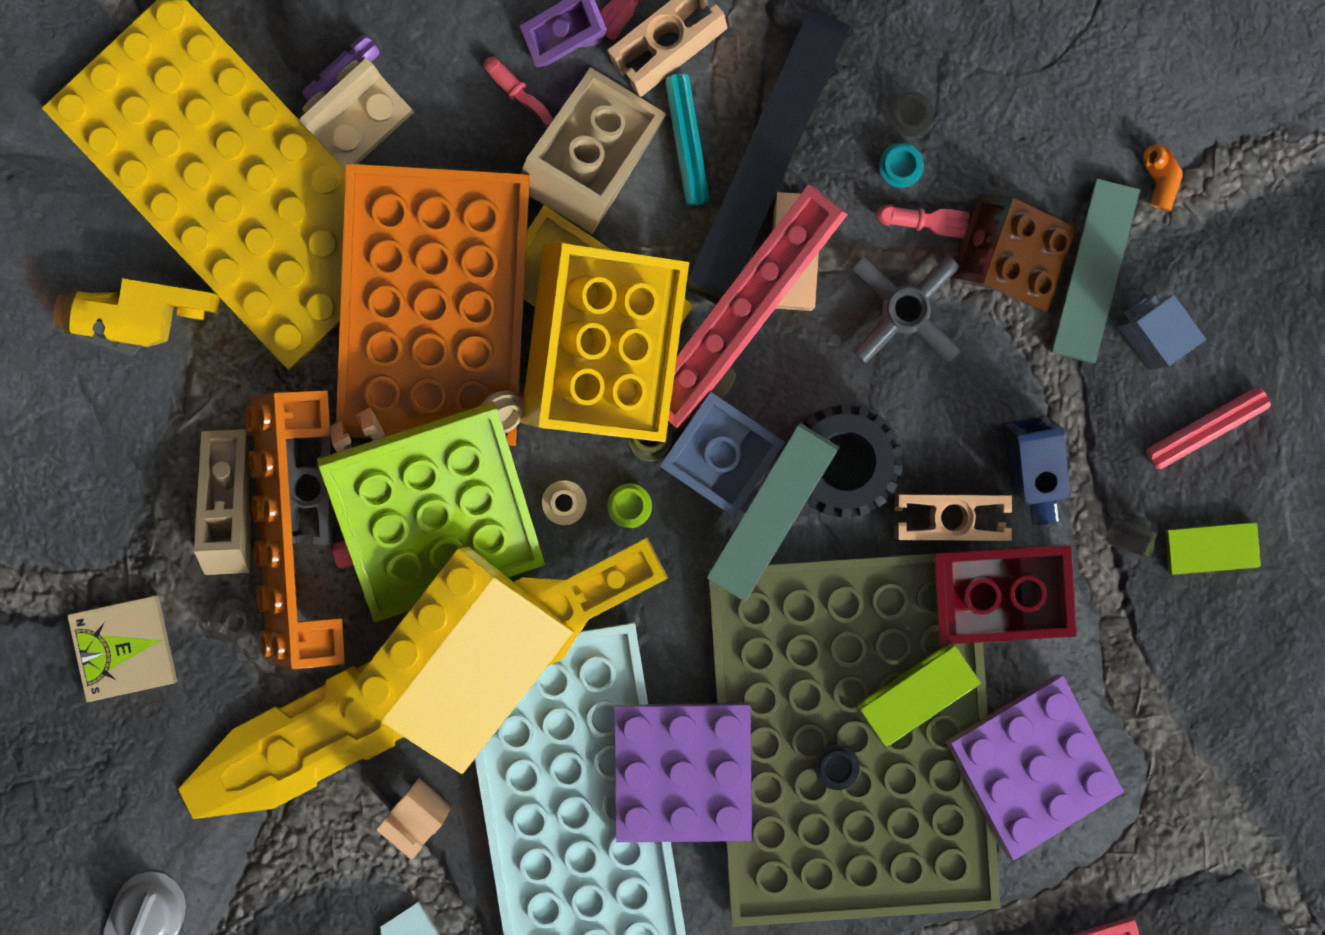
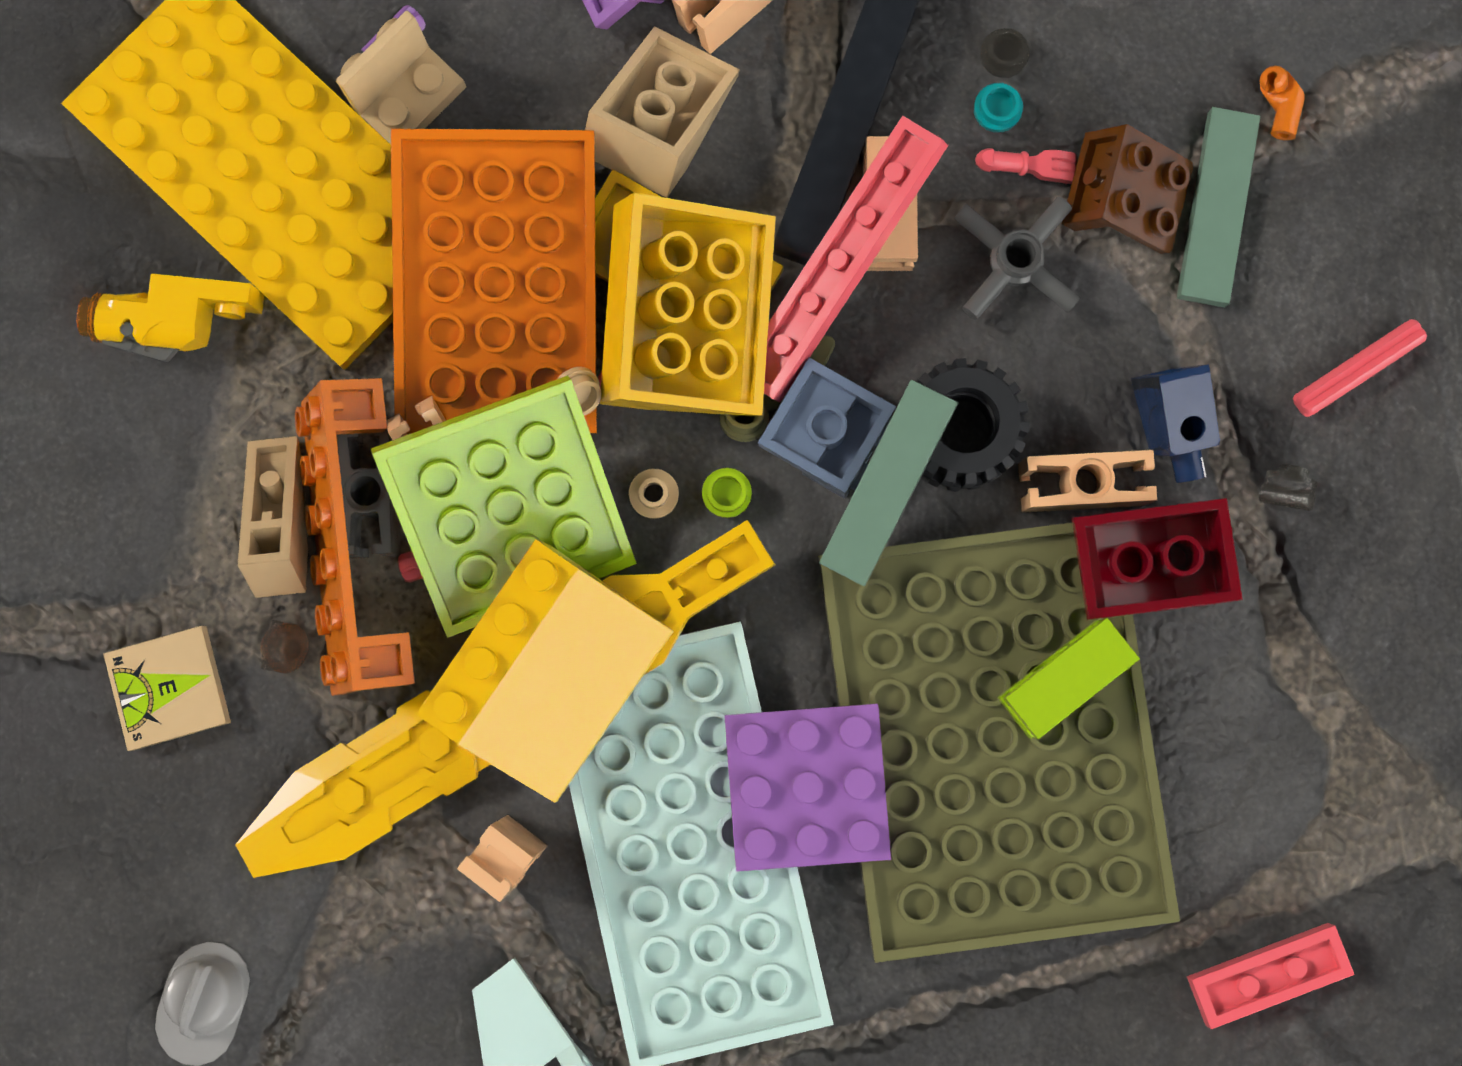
camera: 10 degrees left, 5 degrees down
(515, 89) = (575, 53): coral piece -> none
(687, 140) = (764, 95): teal axle -> none
(837, 767) = (981, 769): black plate -> none
(1034, 766) = (1204, 756): medium lavender plate -> none
(1160, 331) = (1301, 258): sand blue brick -> none
(1212, 548) = (1378, 499): lime tile -> none

